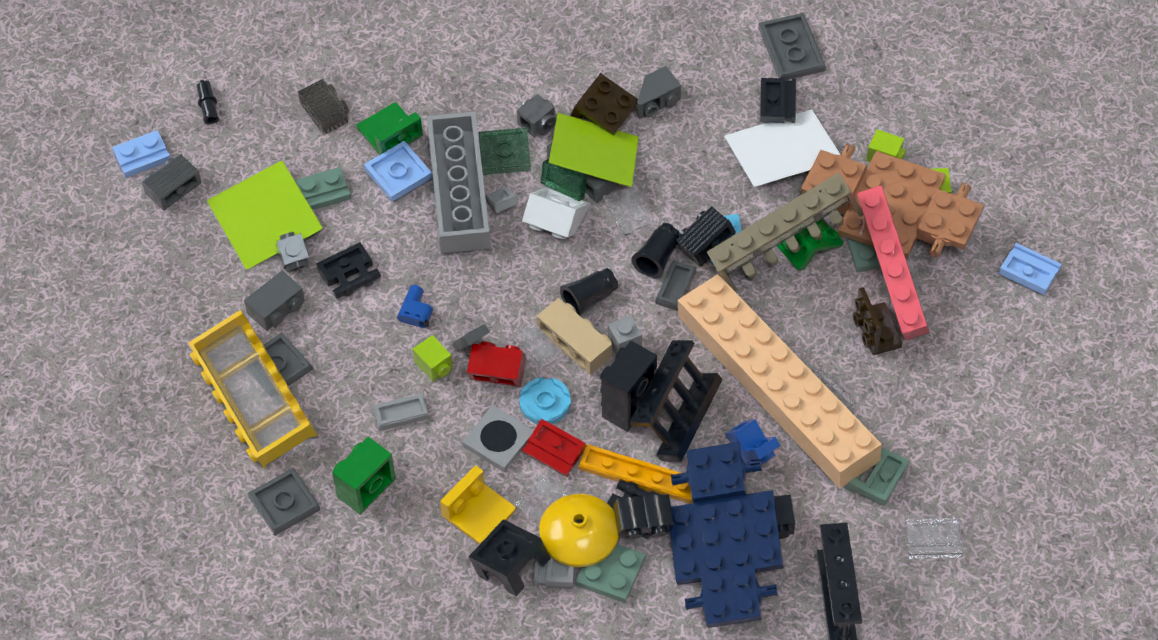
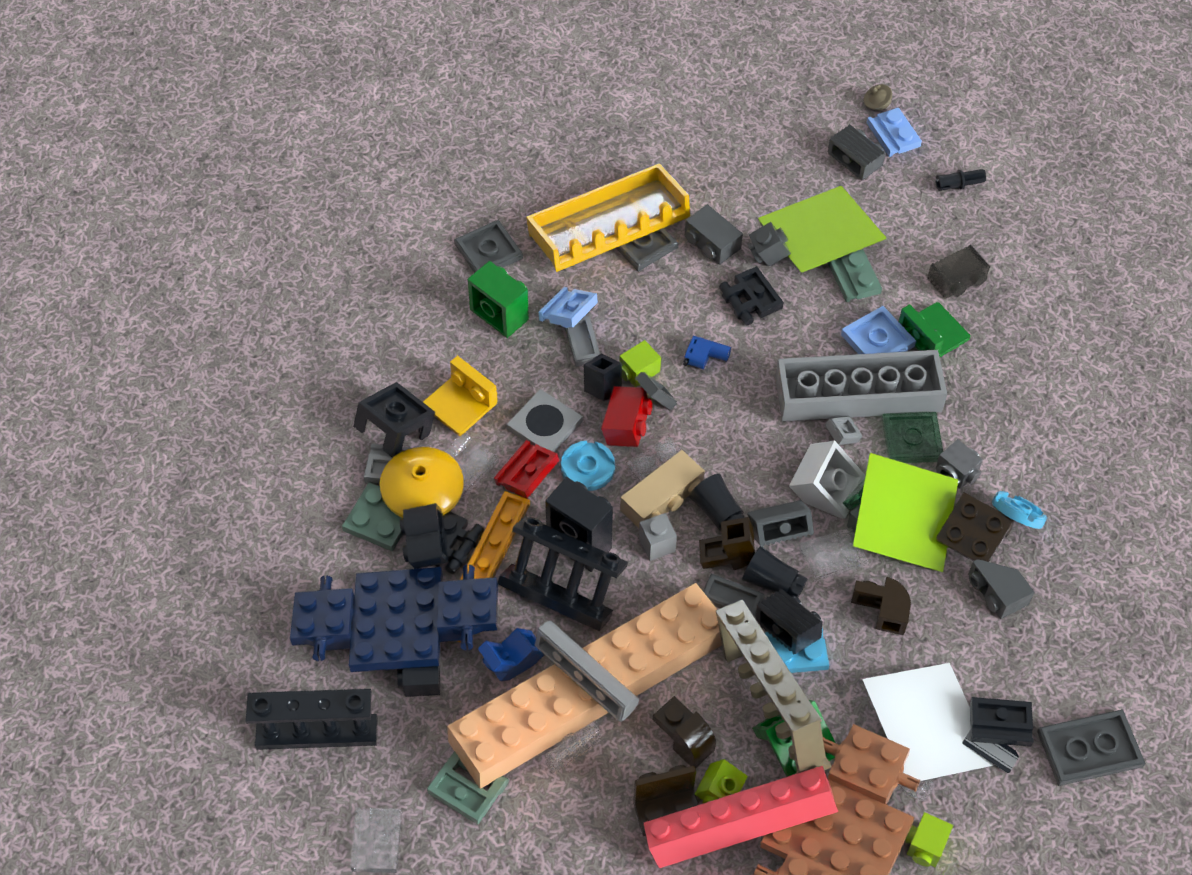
camera: 90 degrees right, 0 degrees up
(98, 162) = (878, 97): none -> dark tan hat
(367, 418) = (568, 307): none -> light blue plate
(454, 384) = (601, 376): none -> black brick
(584, 73) = (1019, 510): none -> medium azure tile
(606, 242) = (781, 522): none -> dark grey brick
(633, 280) = (733, 547): none -> dark brown brick
(678, 167) = (891, 601): none -> dark brown brick
(782, 367) = (585, 671): none -> light grey brick
(804, 107) = (998, 754): none -> sticker
(815, 309) = (690, 732): none -> dark brown brick
(857, 278) = (720, 781): none -> lime brick

